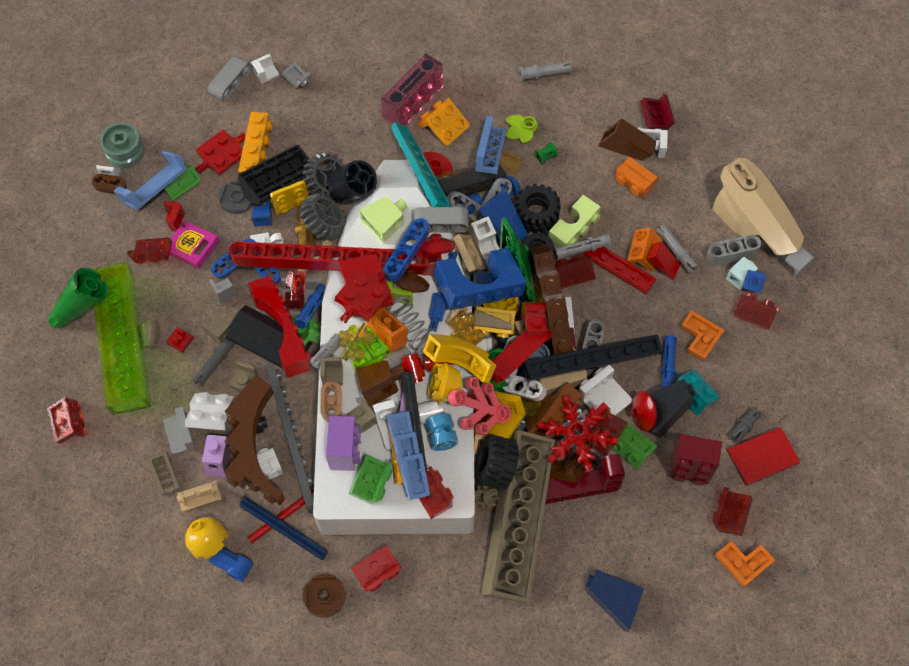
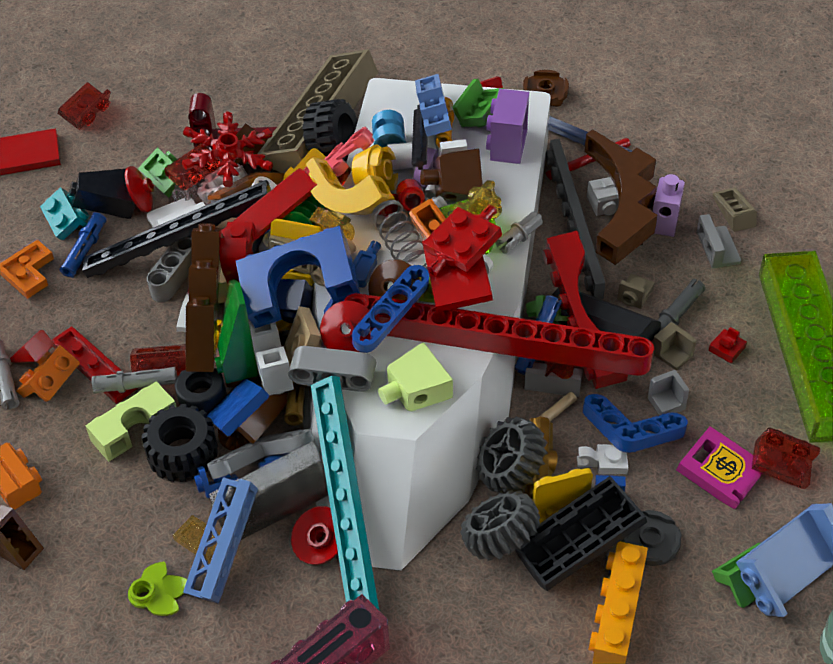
camera: 170 degrees left, 15 degrees down
(149, 333) = (771, 355): dark tan cone -> none
(175, 214) = (751, 517): red bracket -> none
(199, 496) = (698, 180): tan hinge -> none
(205, 537) = (676, 133): yellow cylinder -> none
(208, 411) = (678, 246): white plate -> none
(220, 152) = (680, 617): red plate -> none
(235, 566) = (643, 116): blue piece -> none
(329, 402) = (519, 180): medium nougat plate -> none
(331, 370) = (515, 209): dark tan panel -> none
(352, 181) = (458, 484): black cylinder -> none
(364, 416) = (488, 166): dark tan panel -> none
(439, 498) = (405, 91): clear red bracket -> none
(444, 121) = (286, 615): light orange bracket -> none
(546, 153) = (133, 535): green bush -> none
(615, 597) = (238, 56): dark blue slope -> none
(694, 459) = (104, 127): dark red brick -> none
(744, 567) = (95, 66): orange plate -> none
(745, 425) = (27, 177): dark grey pin -> none

